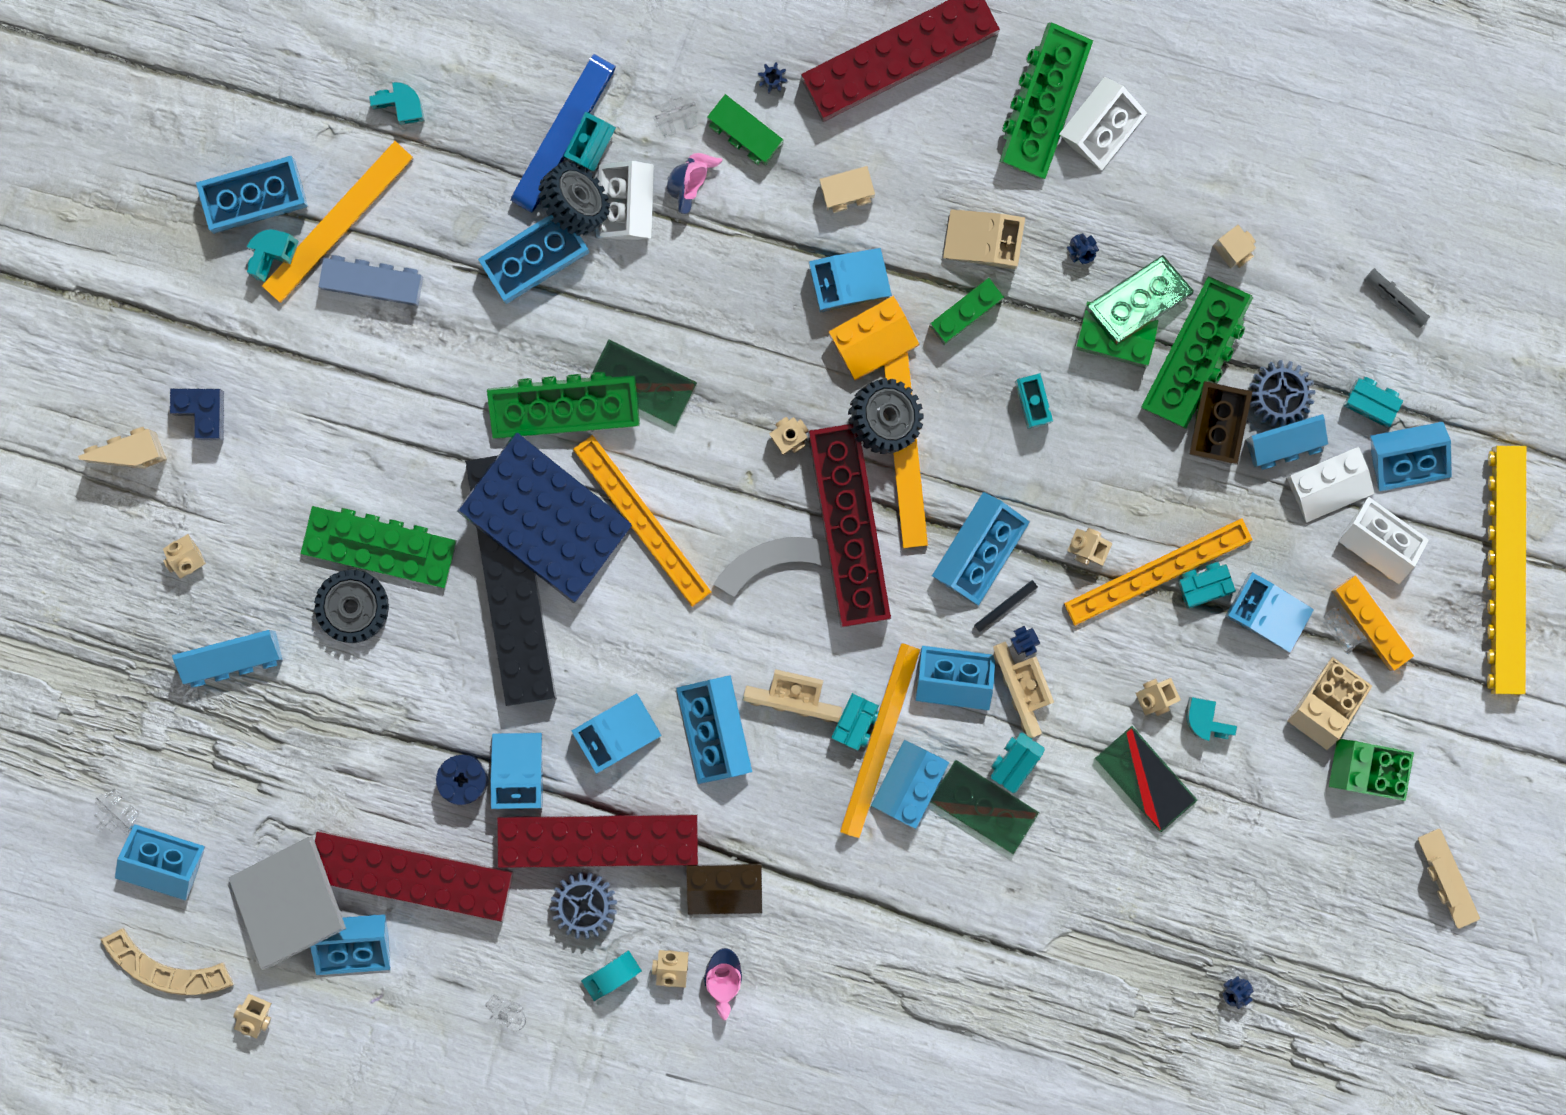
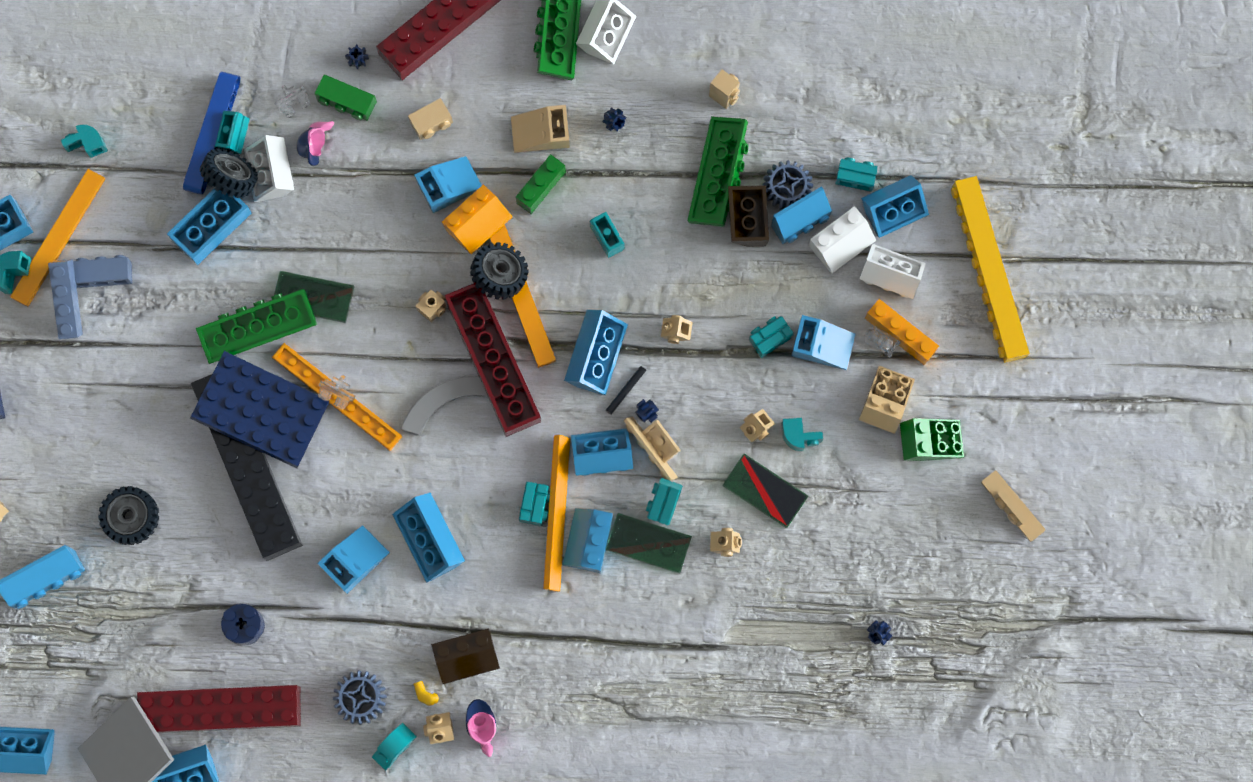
camera: 15 degrees left, 10 degrees down
(332, 311) = (65, 299): none -> sand blue brick
(378, 546) = (140, 465): green plate -> none
(516, 771) = (284, 608): dark azure slope -> none
(597, 840) = (358, 644): dark red brick -> none
(645, 513) = (329, 388): none -> clear hips
(660, 923) = (424, 696): none -> yellow arm
(794, 694) = (483, 494): tan bracket -> none
(1079, 832) = (725, 542): none -> tan brick
(1134, 350) = (655, 175): green slope -> none
(1139, 300) = (665, 143): clear green tile -> none
(1158, 571) = (732, 336): light orange tile -> none
(1396, 297) = (872, 108): dark grey pin -> none

